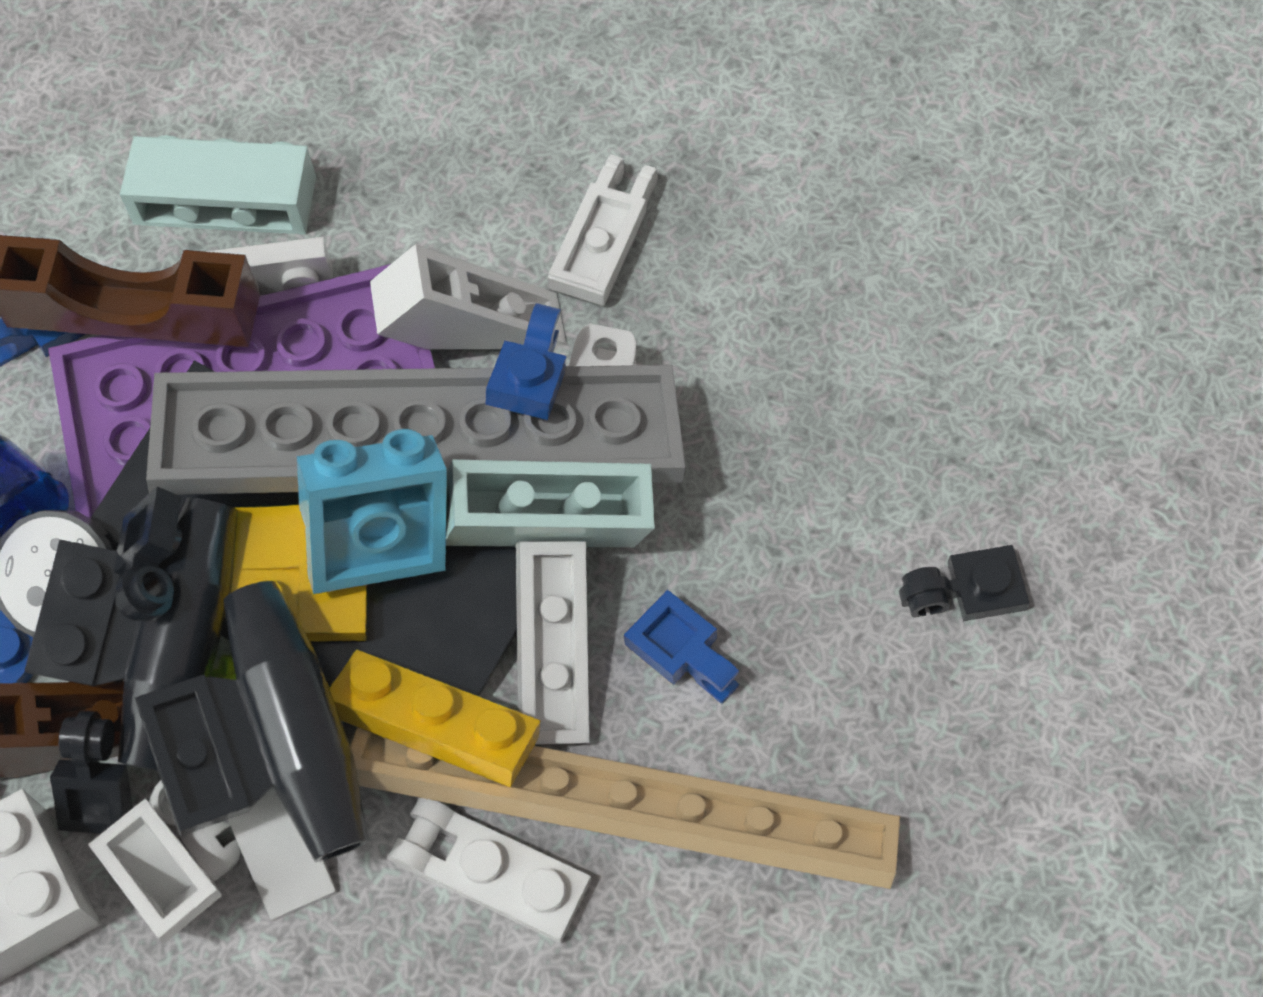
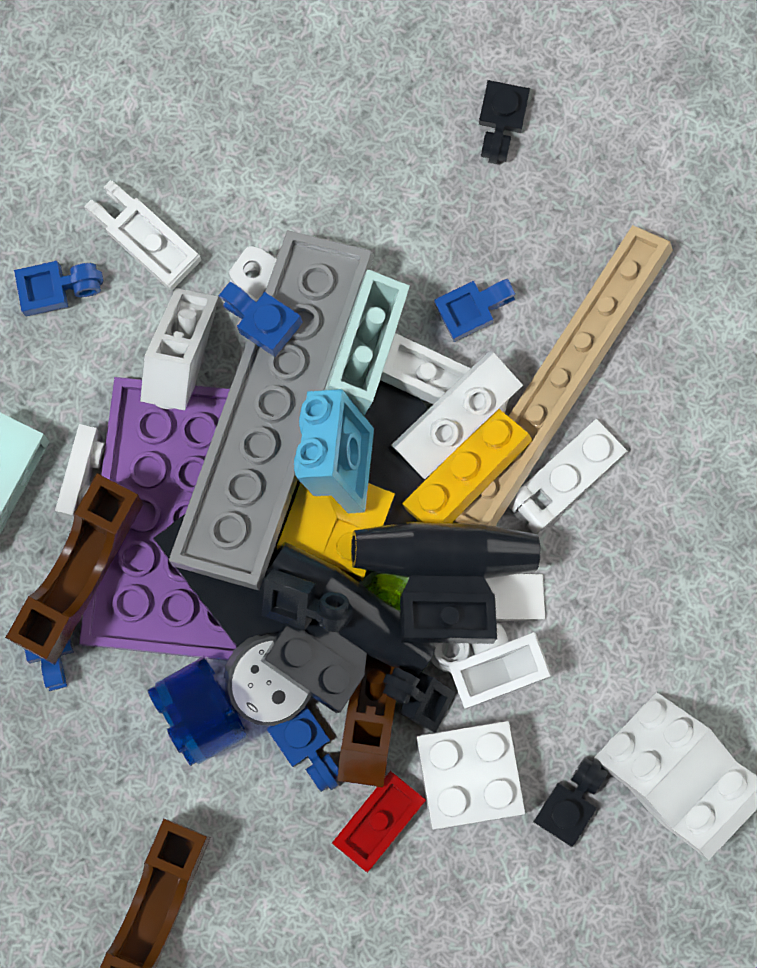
camera: 70 degrees left, 15 degrees up
(494, 151) = (44, 287): none -> blue plate
(508, 670) = (457, 414): none -> white plate

